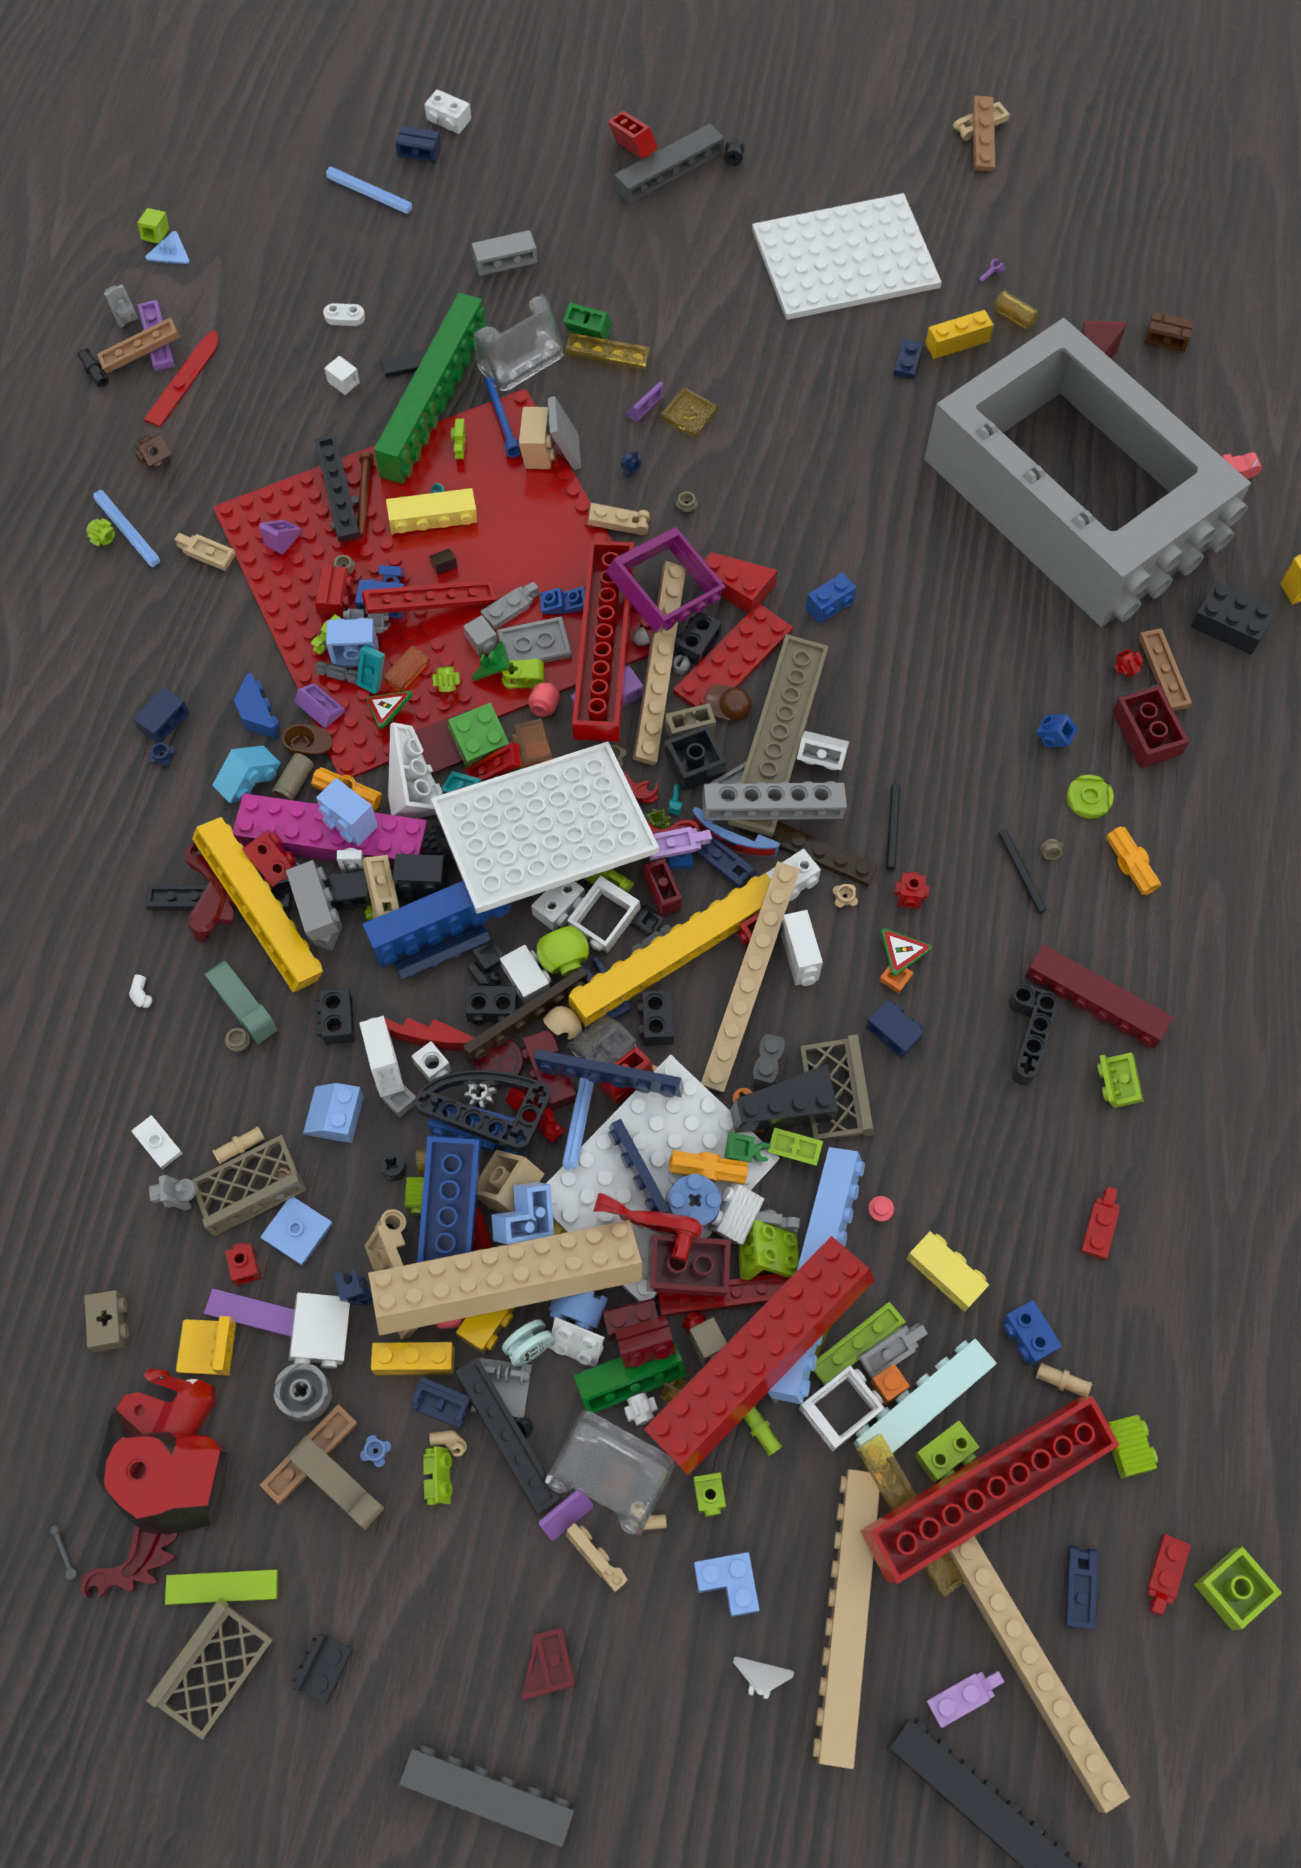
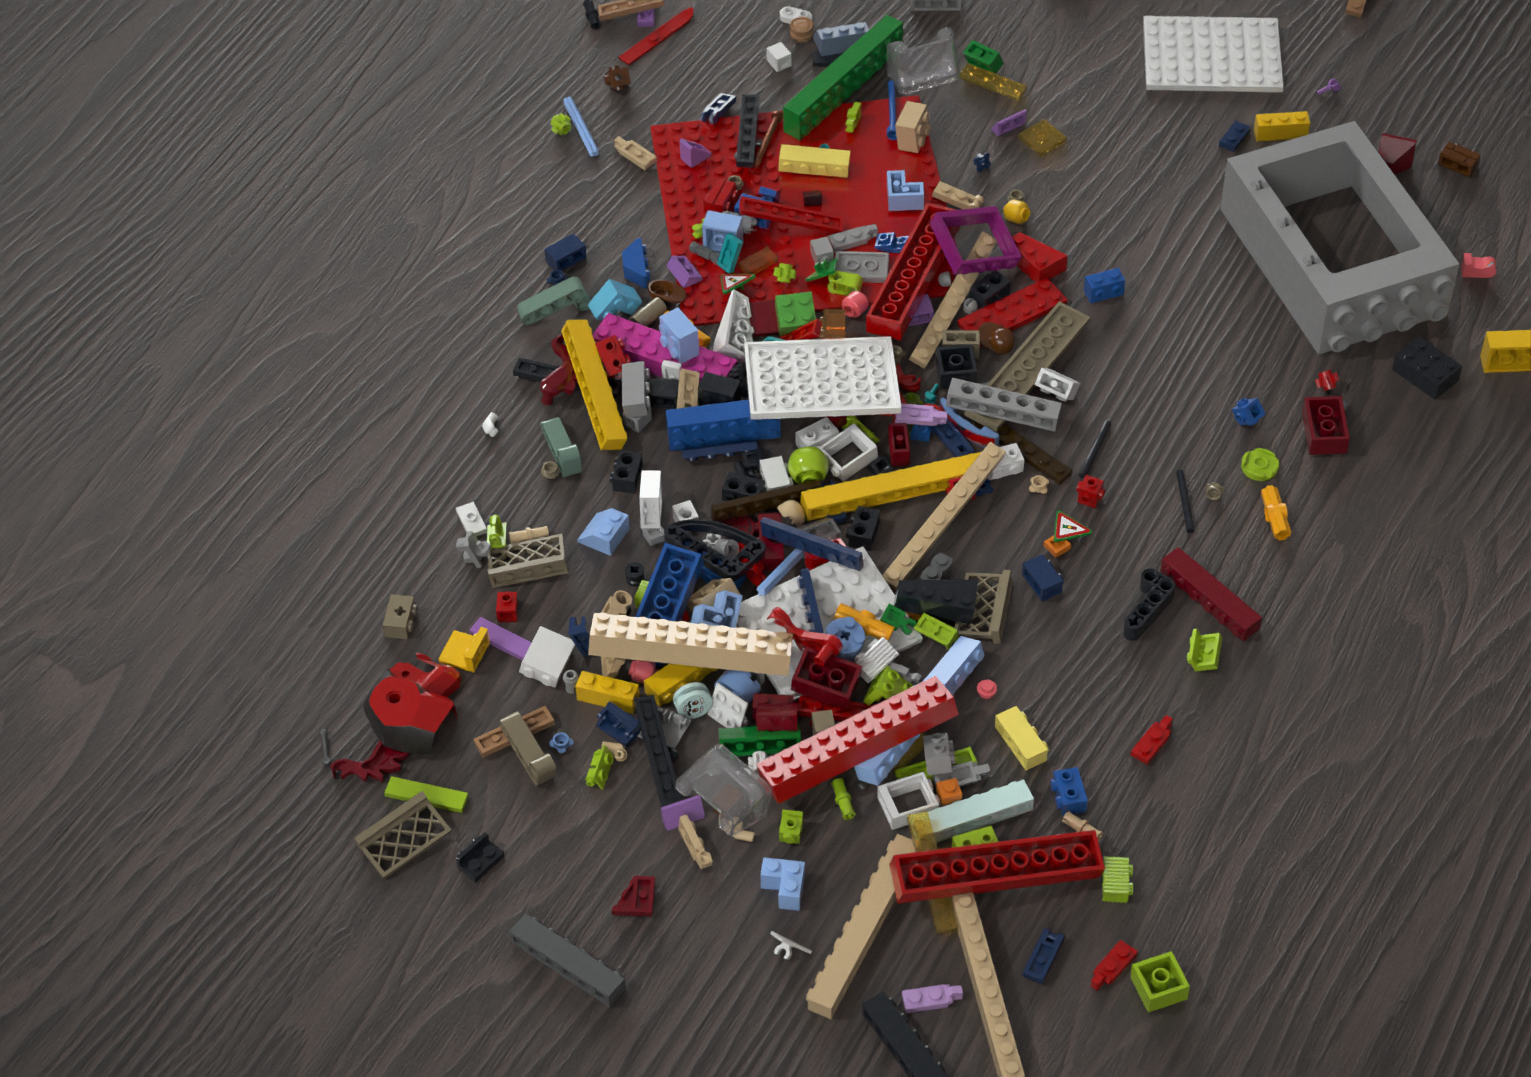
camera: 20 degrees right, 15 degrees down
(167, 790) = (553, 300): none -> sand green beam
(196, 1156) = (496, 532): none -> lime hinge
(289, 463) = (717, 108): none -> dark blue hinge
(289, 1398) = (522, 691): light grey brick -> none
(296, 1230) = (552, 597): light blue plate -> none
(357, 331) = (801, 29): none -> medium nougat wheel
(360, 1349) = (570, 678): none -> light grey pin
(410, 334) = (838, 39): none -> sand blue slope
(440, 1034) = (679, 493): red slope -> none
(499, 1100) = (727, 547): none -> light grey wheel
(552, 533) = (903, 195): none -> light blue brick
(564, 433) = (934, 128): light grey tile -> none
(694, 522) = (1016, 211): none -> yellow head
(801, 948) = (989, 506): white brick -> none
(860, 1334) = (938, 753): none -> light grey brick
(1016, 310) = (1333, 115): clear yellow pin -> none
(1165, 668) = (1356, 392): medium nougat plate -> none

